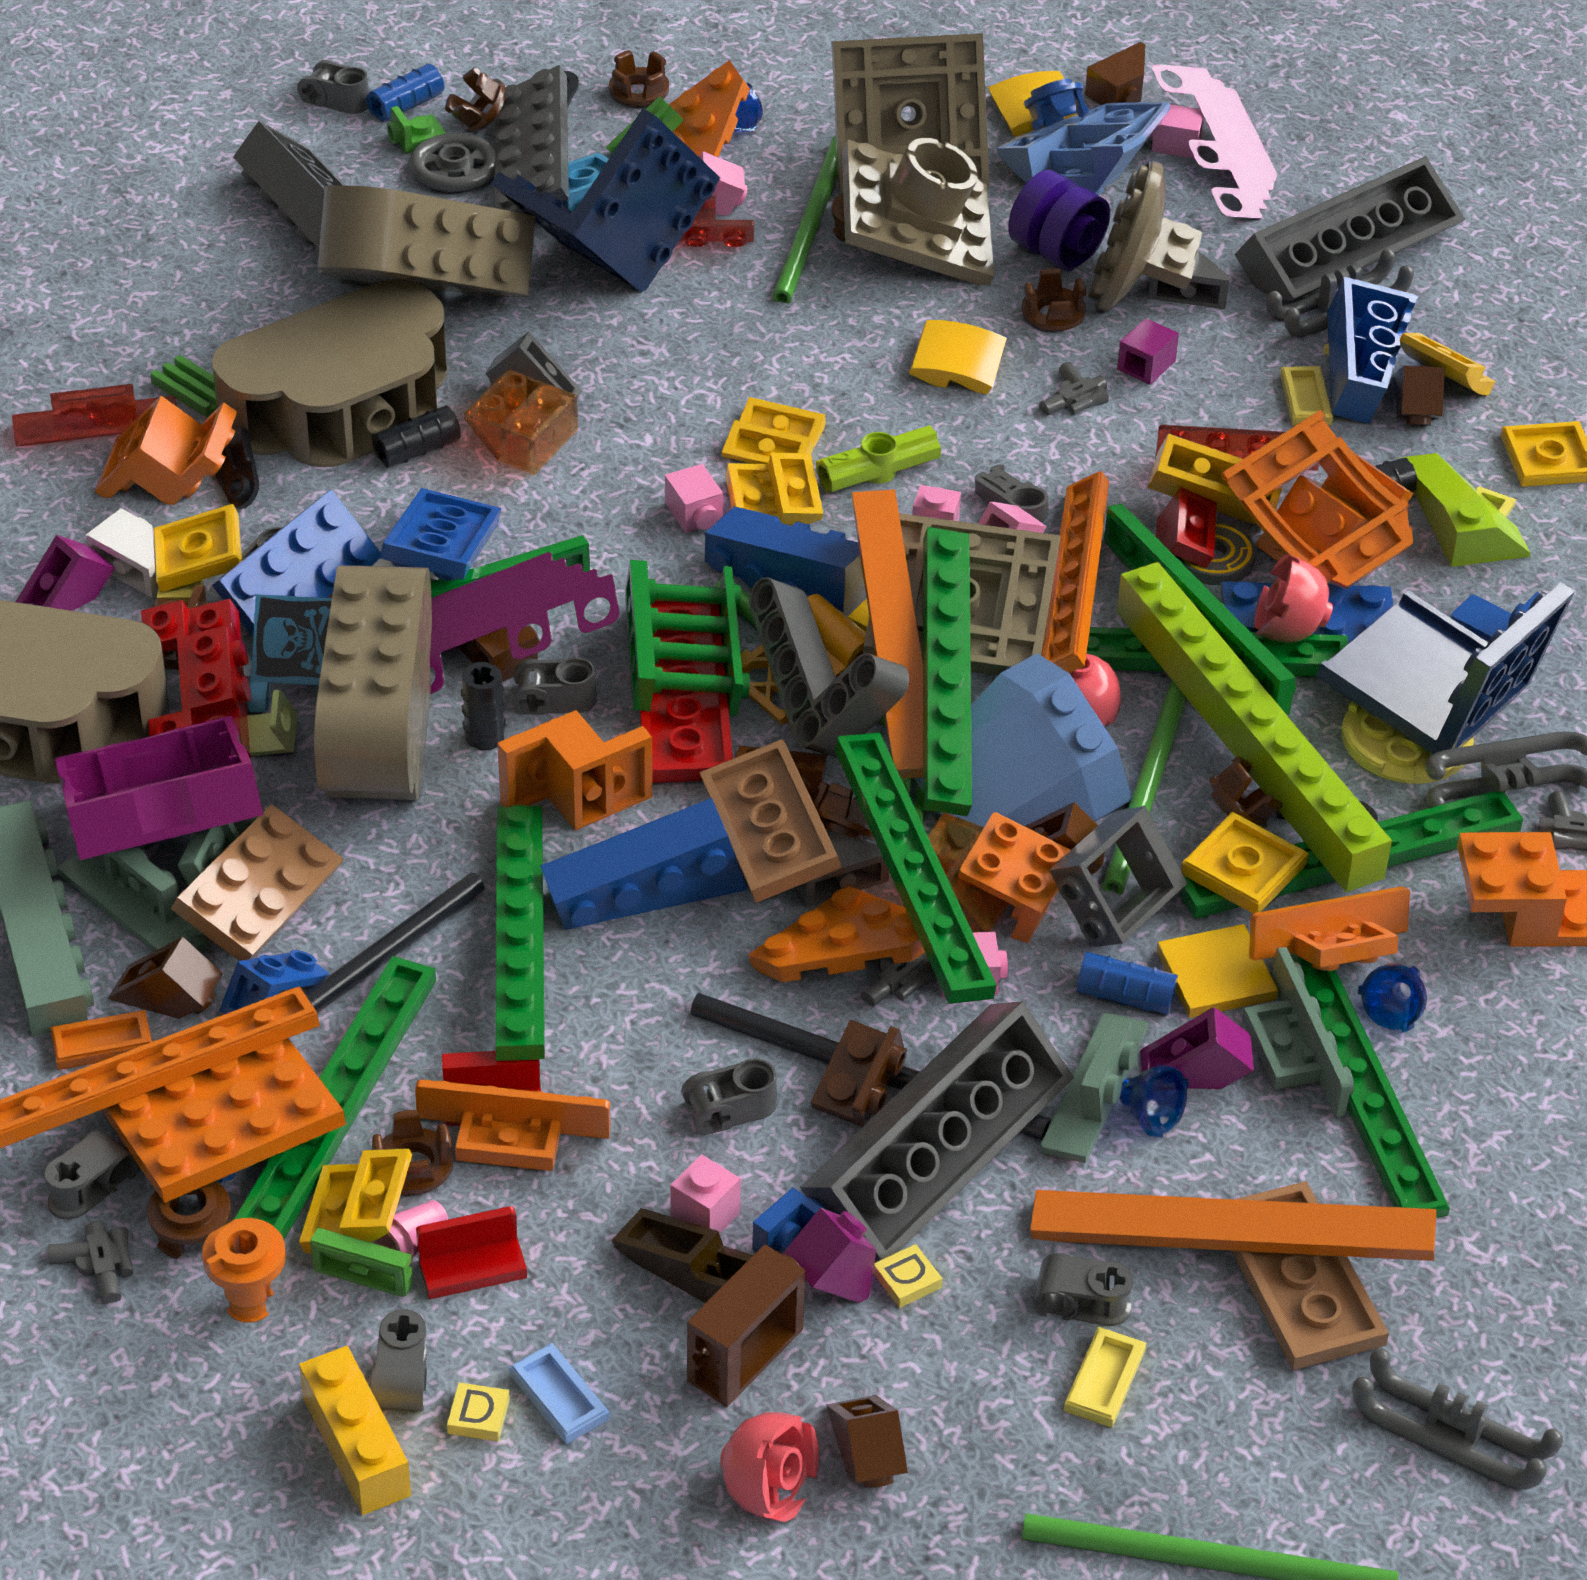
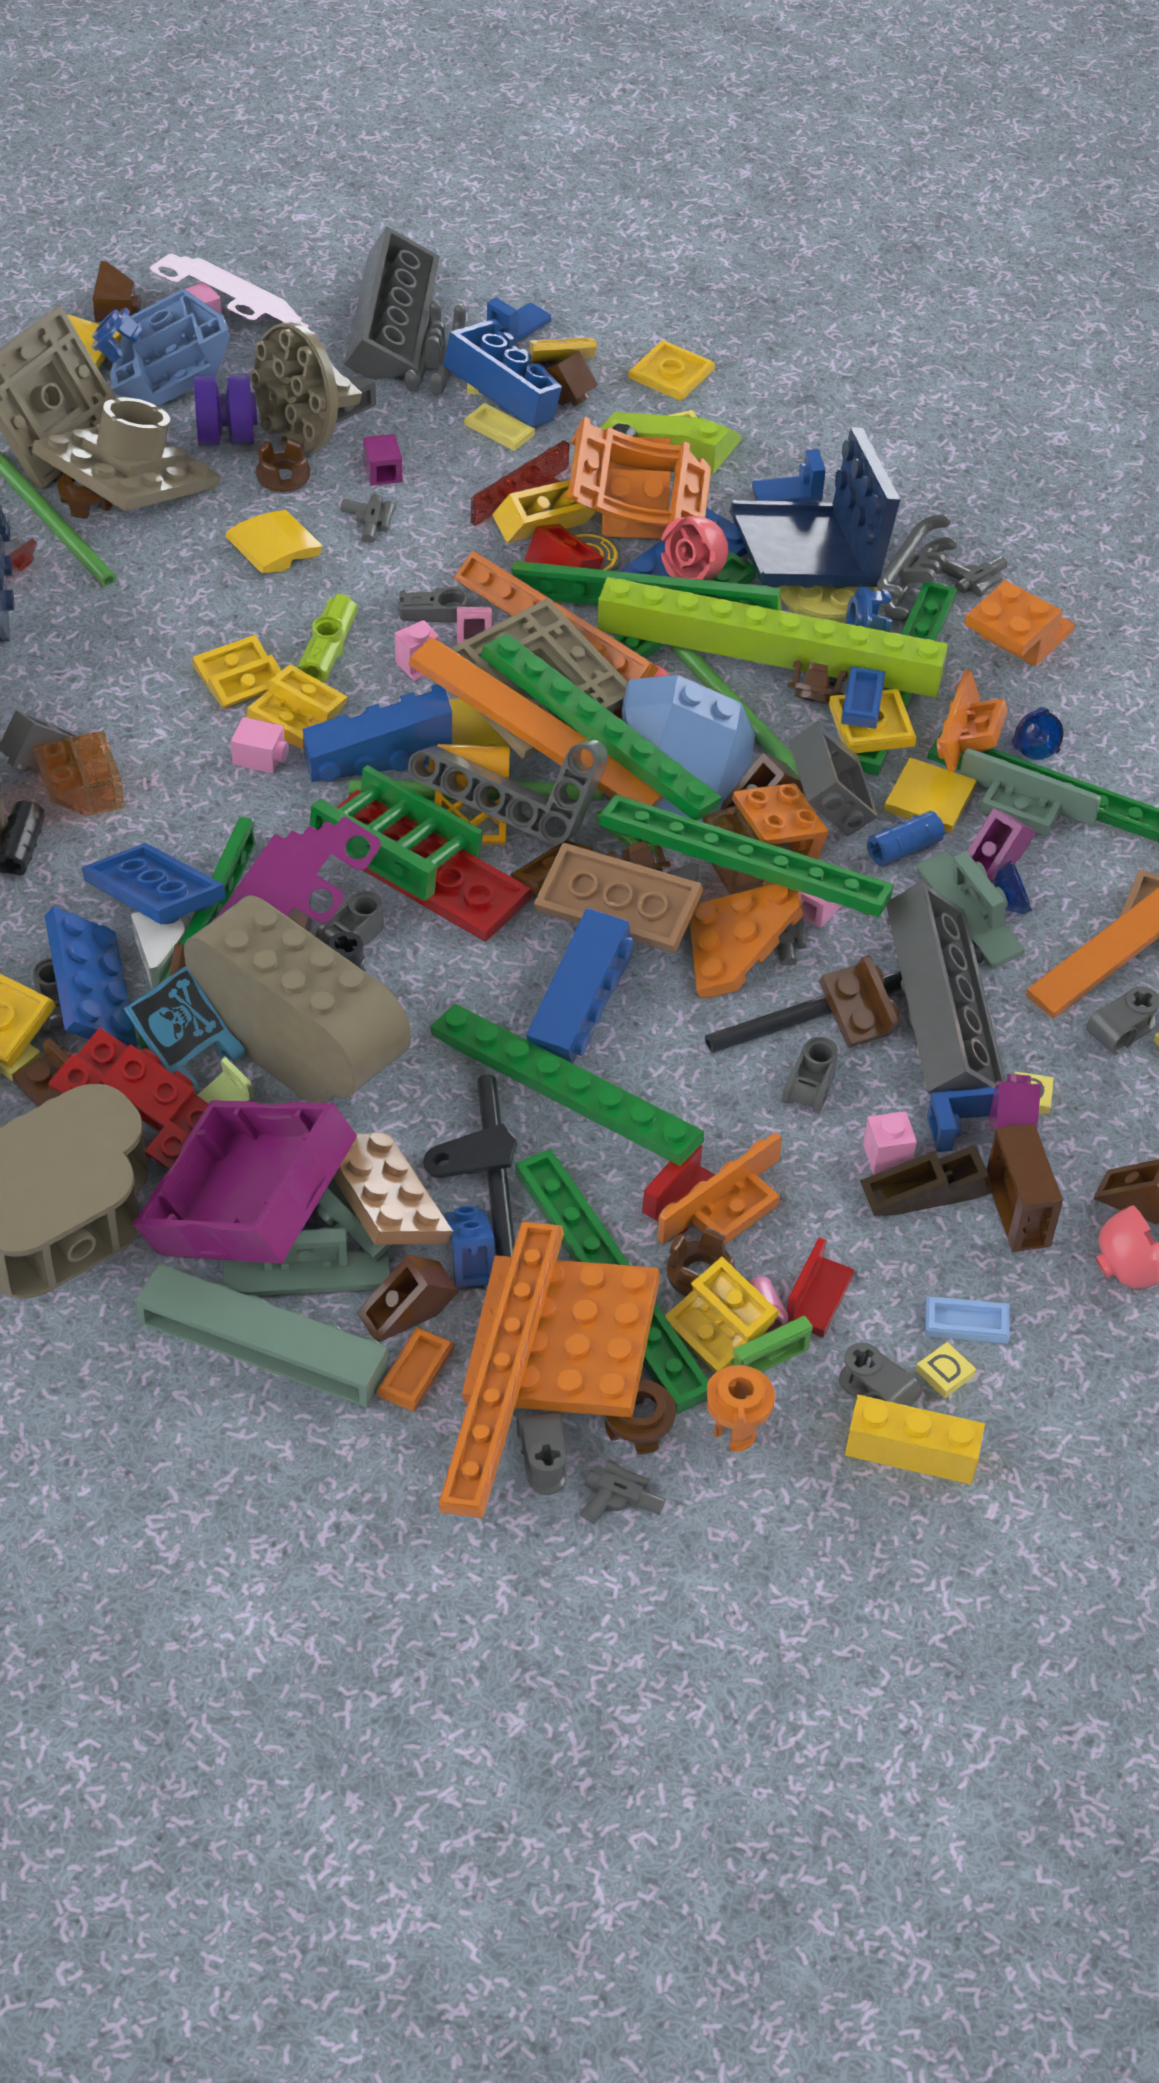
camera: 50 degrees left, 5 degrees up
(373, 921) = (472, 1153): none -> black piece
(575, 769) = (457, 961): orange bracket -> none
(1254, 832) = (863, 697): none -> blue tile
(1378, 764) = (864, 609): none -> blue piece
(1445, 322) = (517, 322): none -> blue bracket

